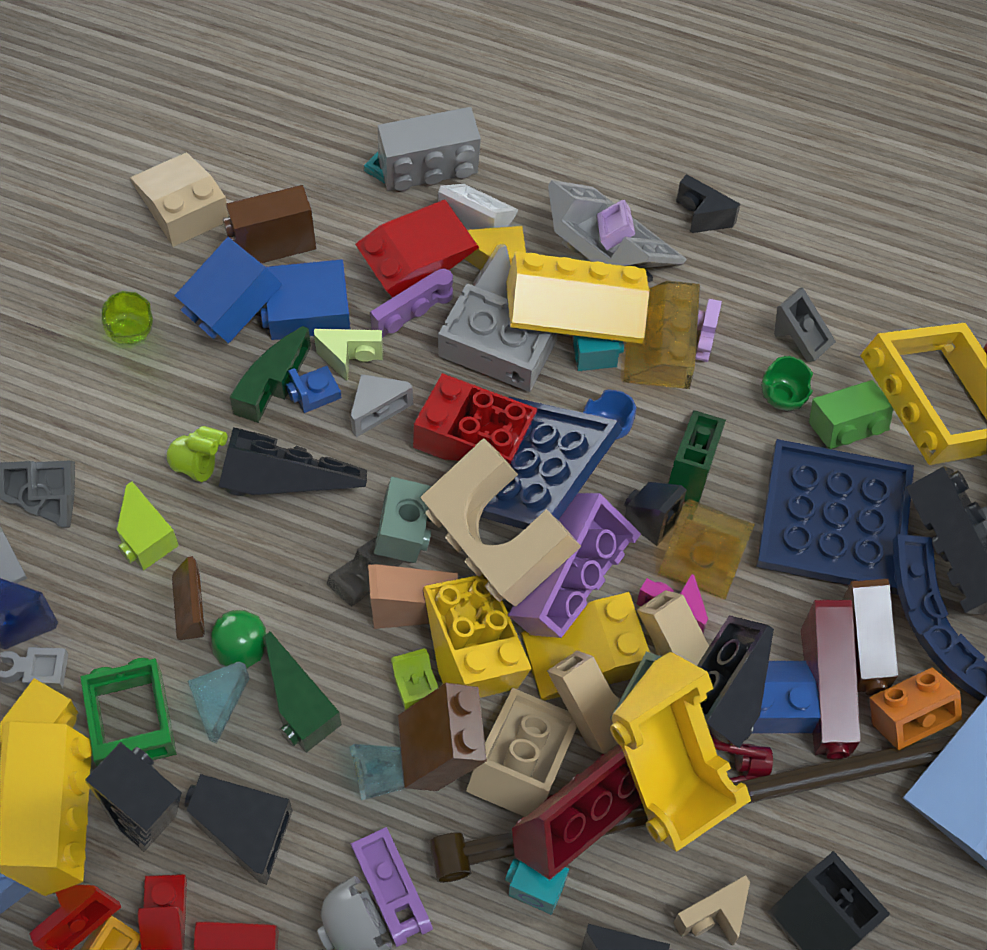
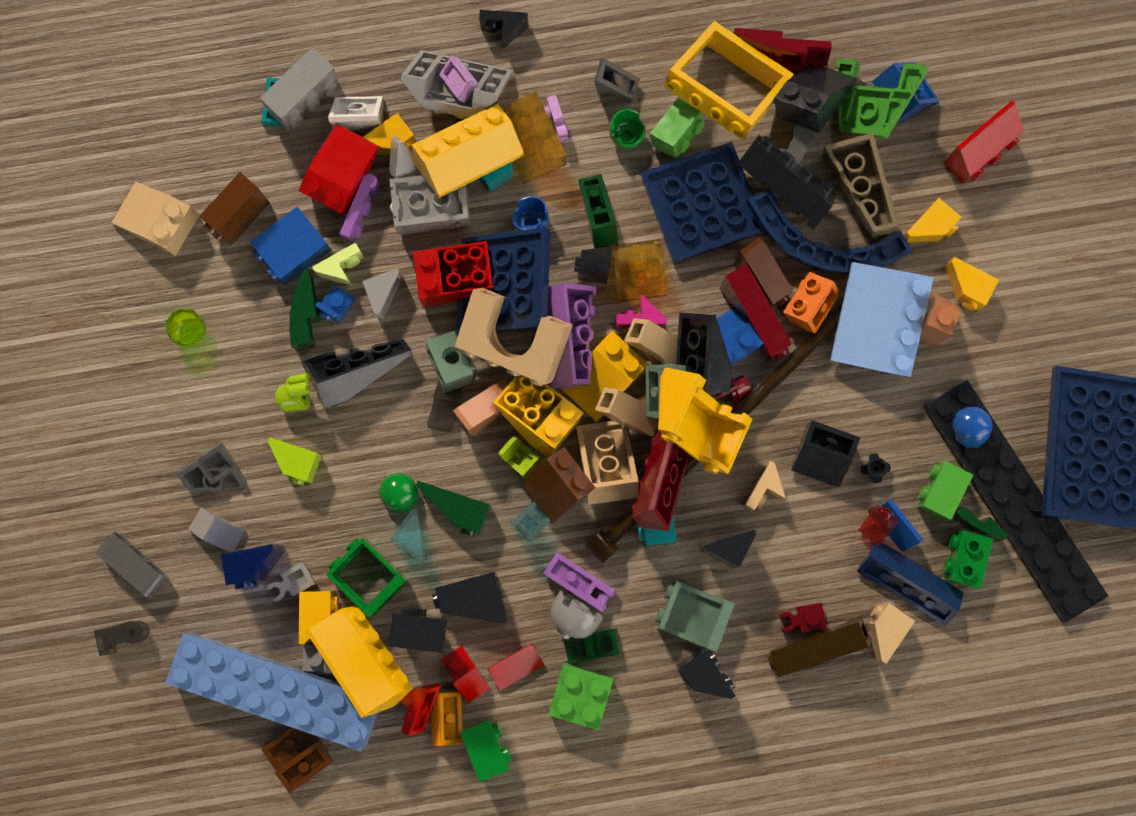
camera: 25 degrees left, 20 degrees up
(188, 600) = (352, 487): reddish brown slope -> none
(227, 291) = (238, 273): blue brick -> none

